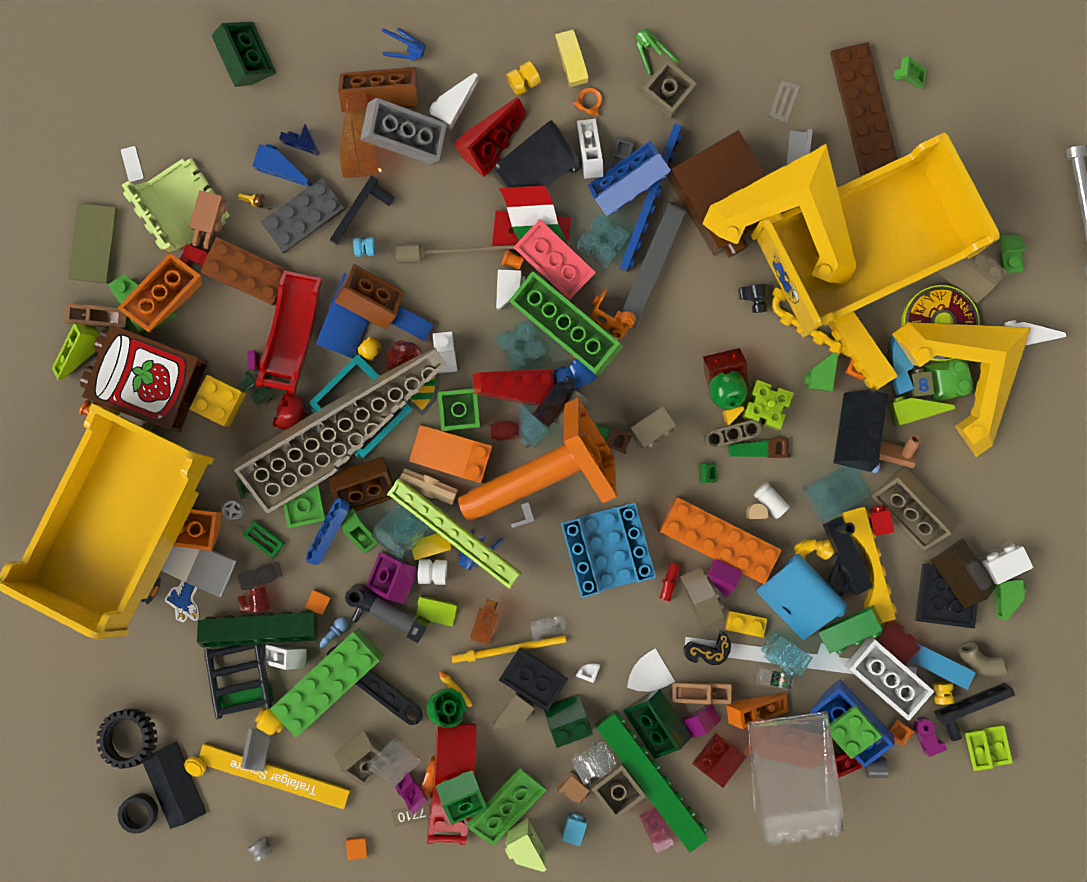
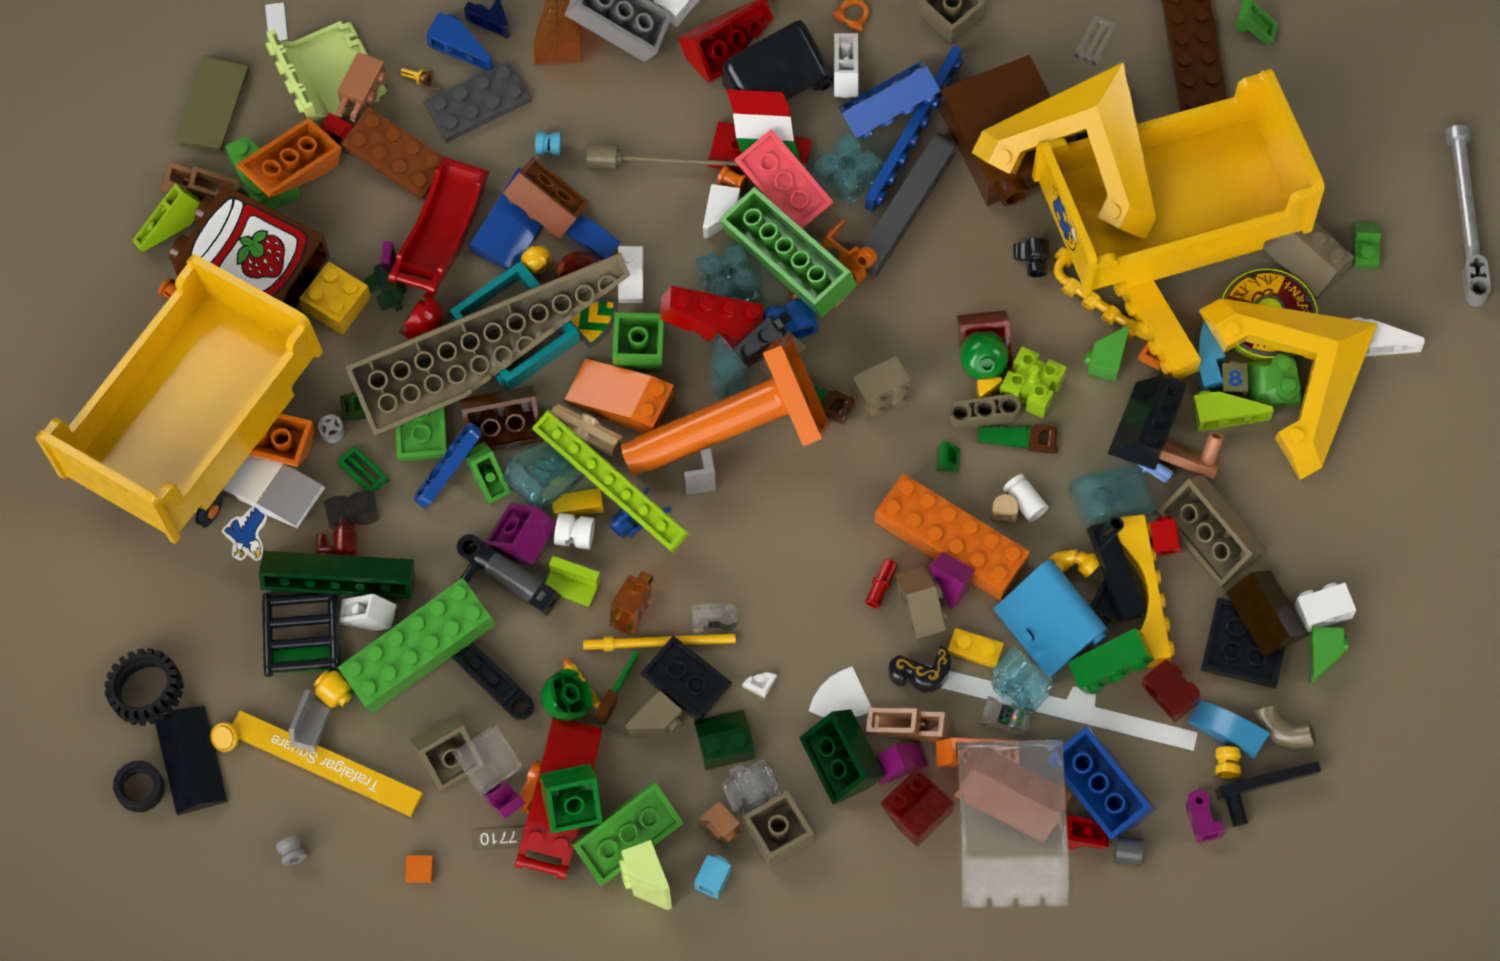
camera: 10 degrees right, 20 degrees down
(318, 602) = (421, 553): orange tile -> none
(340, 625) = (435, 589): light blue bar -> none
(370, 188) = (565, 77): black piece -> none
(479, 701) = (610, 699): none -> piece
(504, 430) = (691, 375): clear red brick -> none
(608, 549) = (806, 532): dark azure slope -> none
(620, 151) = (884, 70): dark grey tile -> none
(651, 781) = (830, 834): green brick -> none
(656, 830) = (823, 891): clear pink slope -> none
(854, 732) = (1099, 785): bright green plate -> none
(889, 678) = (1155, 731): white brick -> none
(901, 732) = (1168, 809): orange slope -> none
(988, 747) = (1283, 843): lime slope -> none

